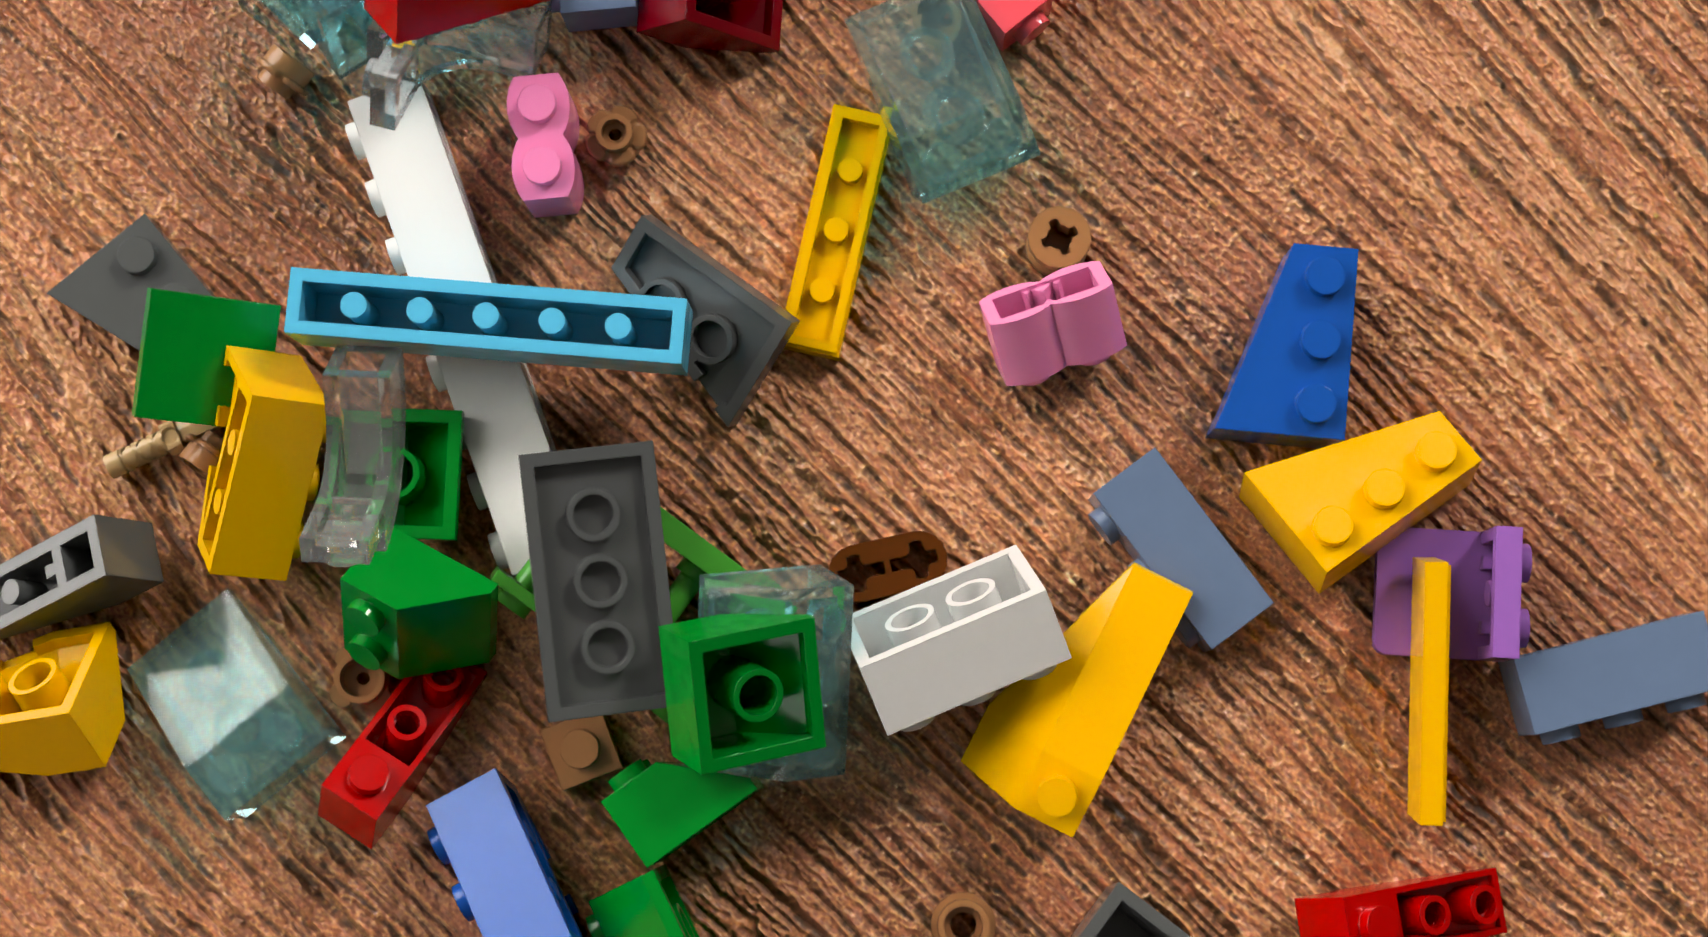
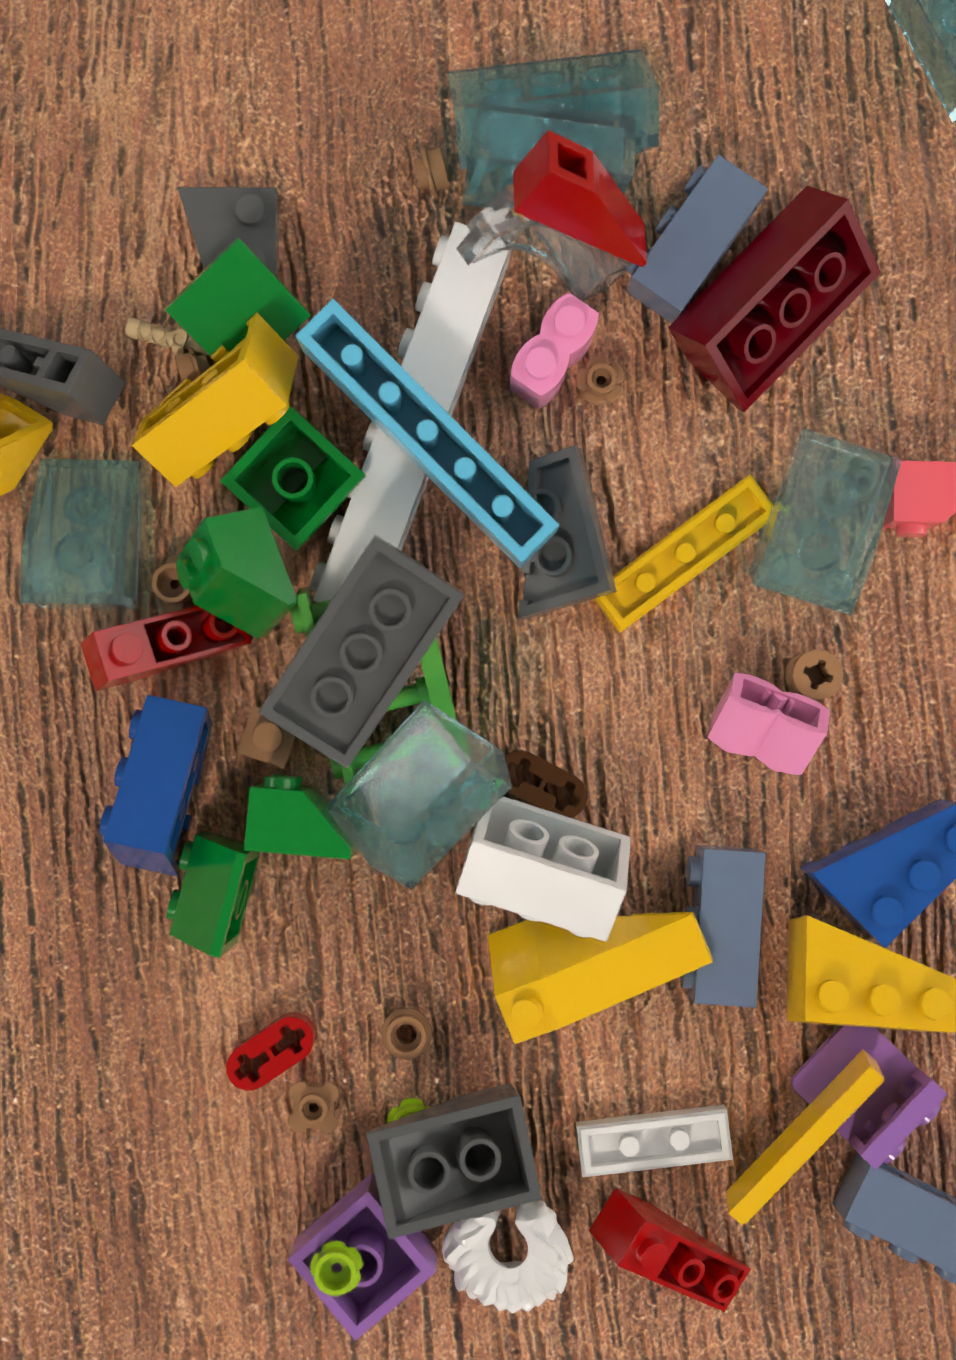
camera: 35 degrees right, 5 degrees up
(362, 457) = (279, 455): clear arch -> none
(741, 689) = (390, 793): green slope -> none
(1293, 822) = (654, 1140): none -> white tile

